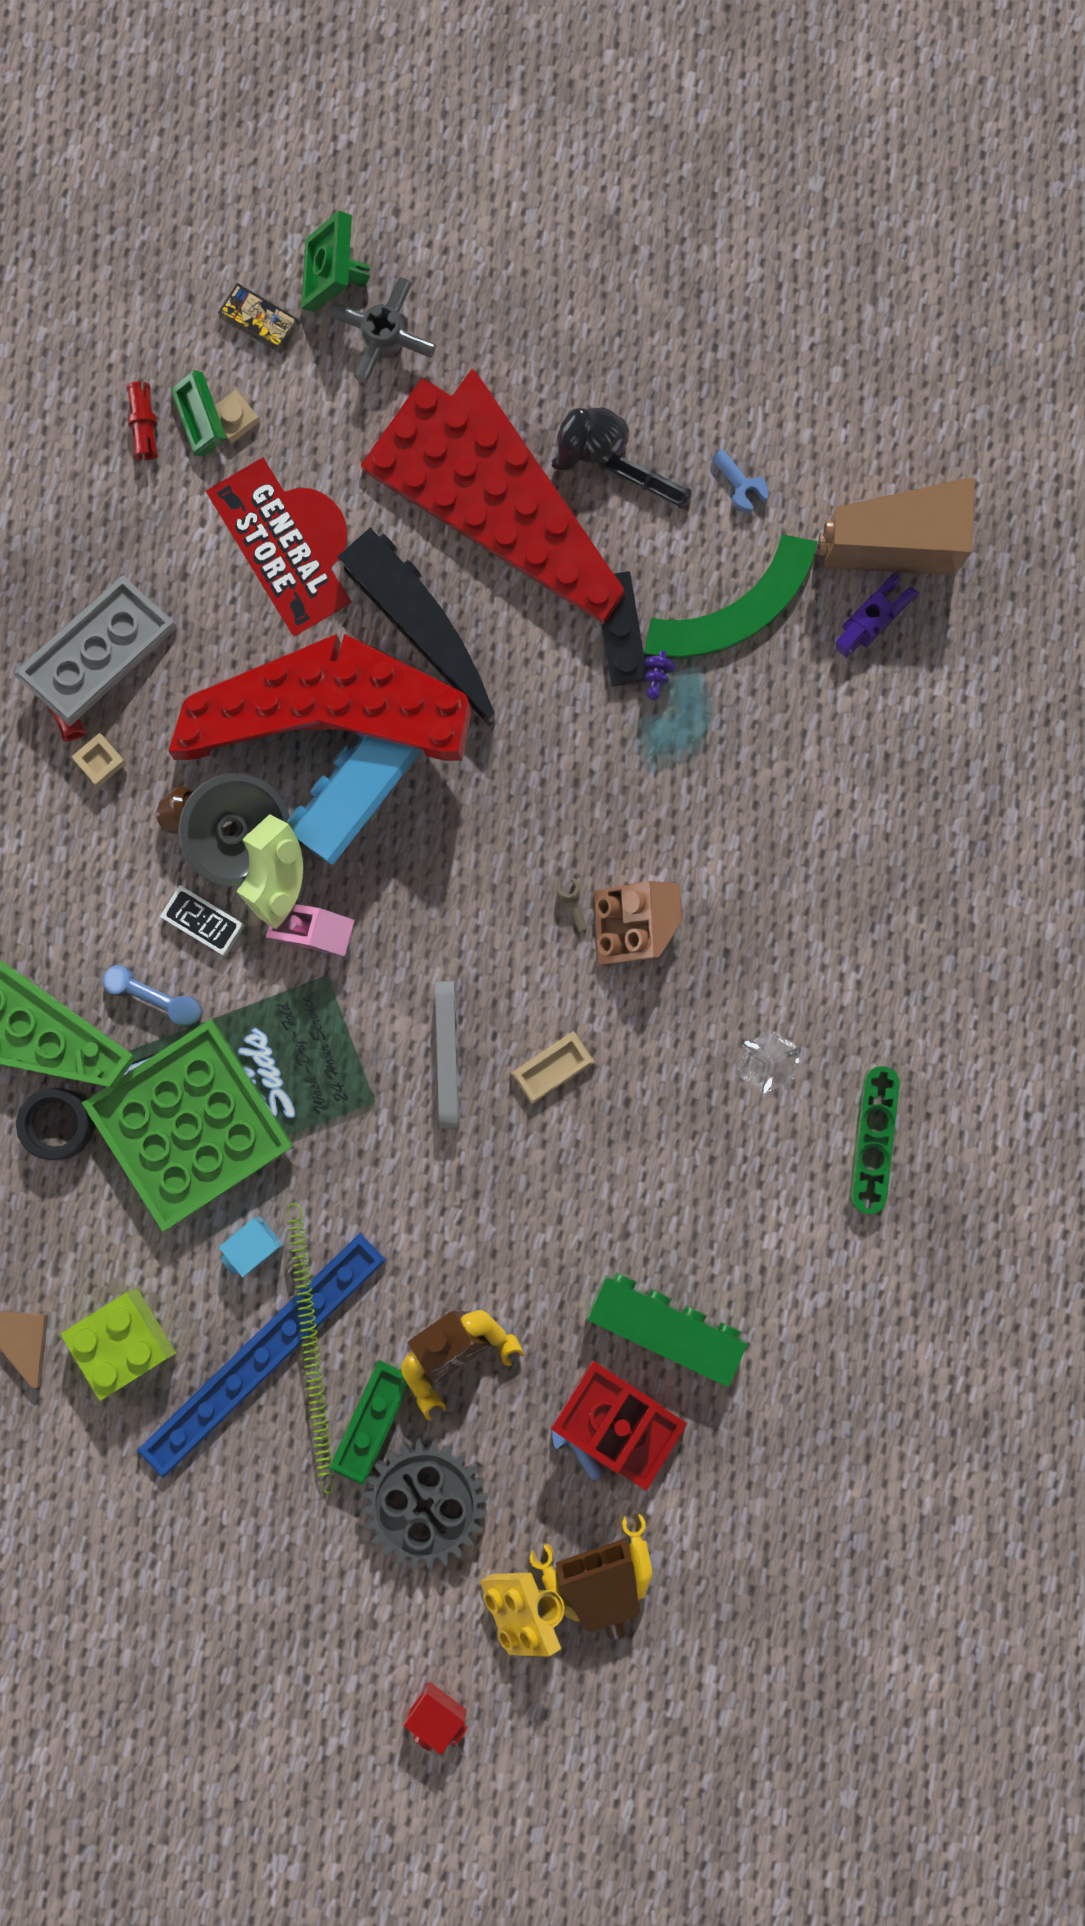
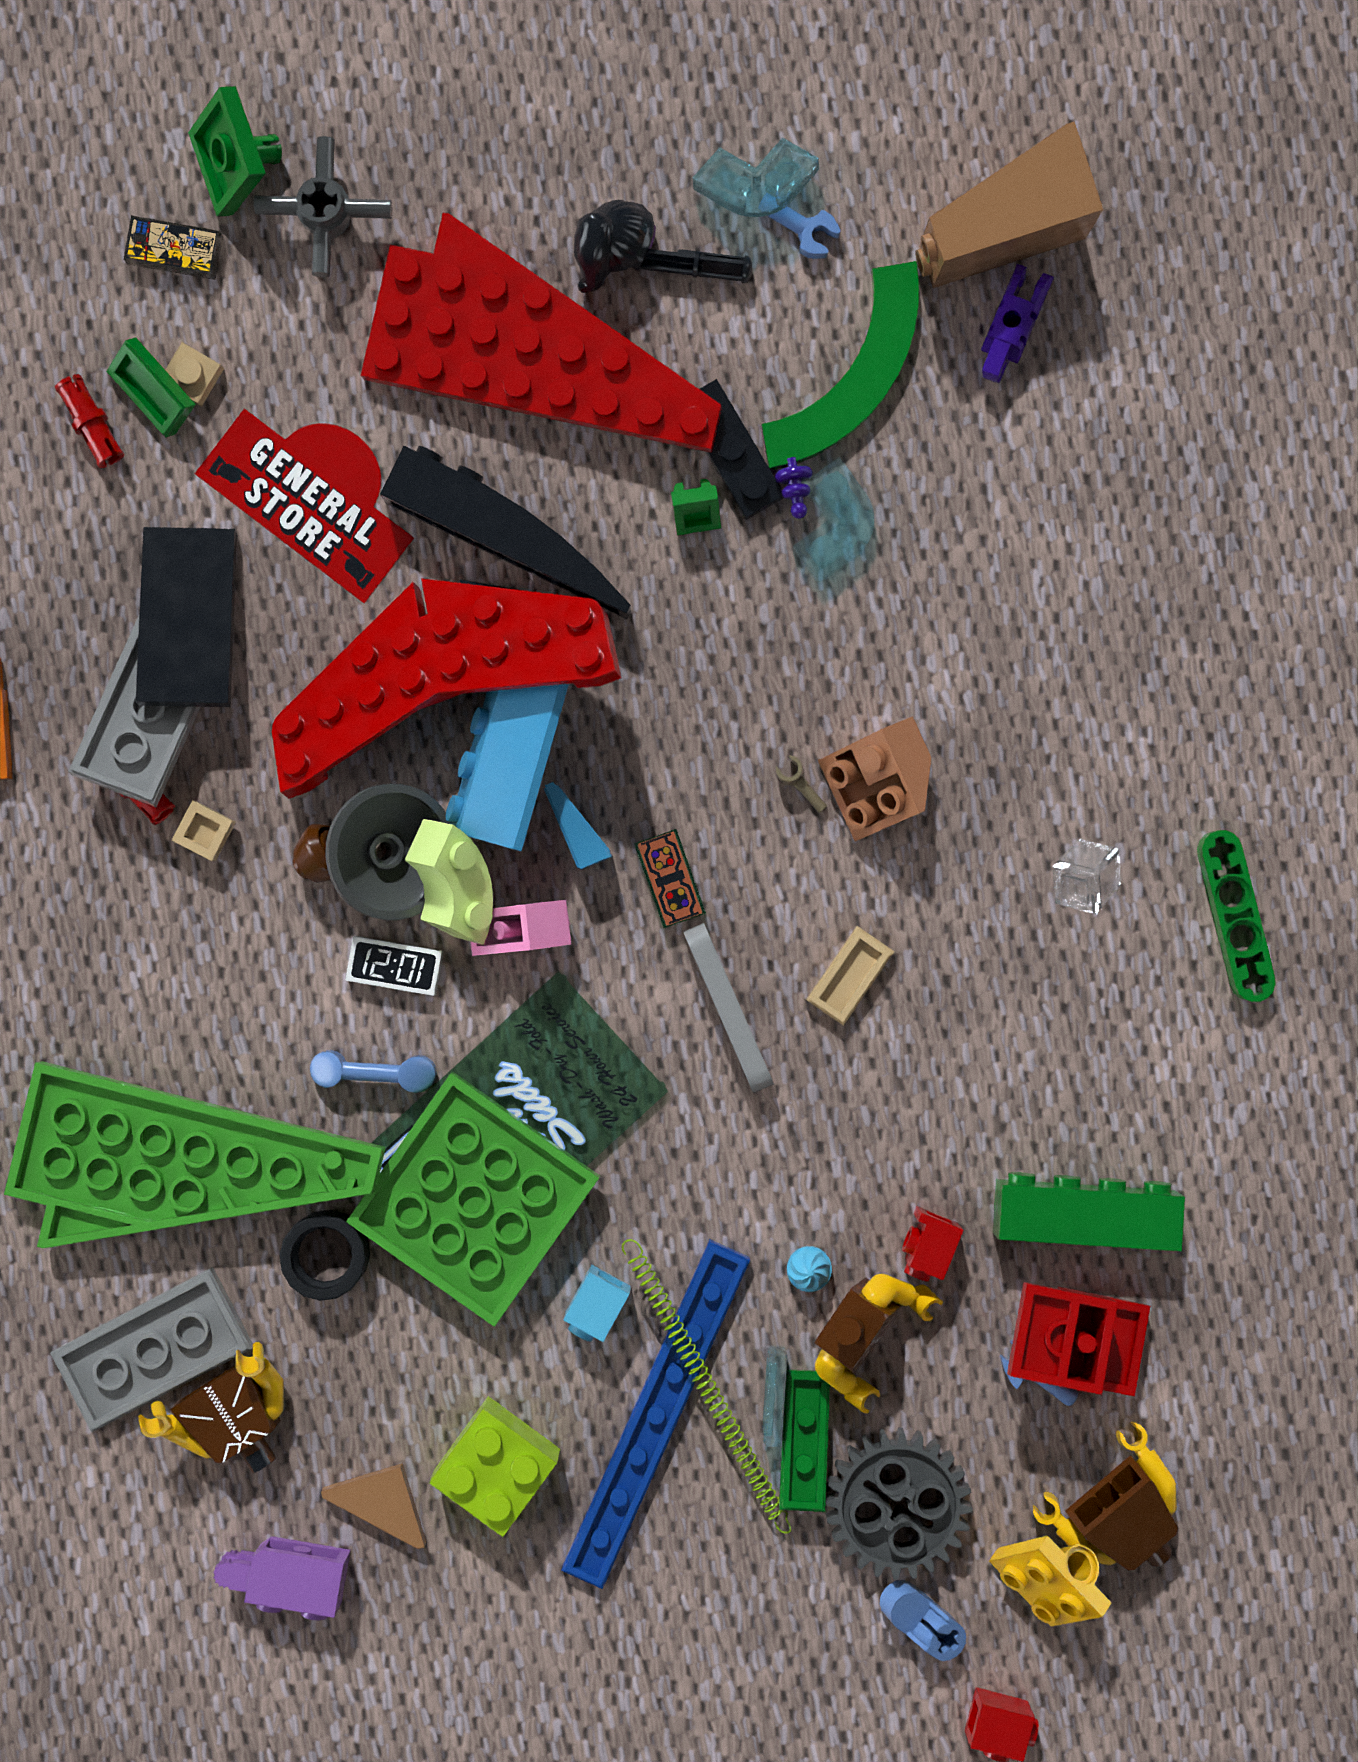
camera: 20 degrees left, 5 degrees up
(153, 593) = (186, 617): none -> black tile
(360, 1376) = (774, 1396): none -> clear light blue tile
(385, 878) = (581, 838): none -> dark azure slope
(417, 1622) = (937, 1635): none -> medium blue piece
(429, 1286) = (809, 1269): none -> medium azure plate
(442, 937) = (670, 878): none -> tile
(531, 1305) = (930, 1245): none -> red brick
(574, 661) = (696, 508): none -> green tile
(719, 442) = (759, 189): none -> clear light blue plate

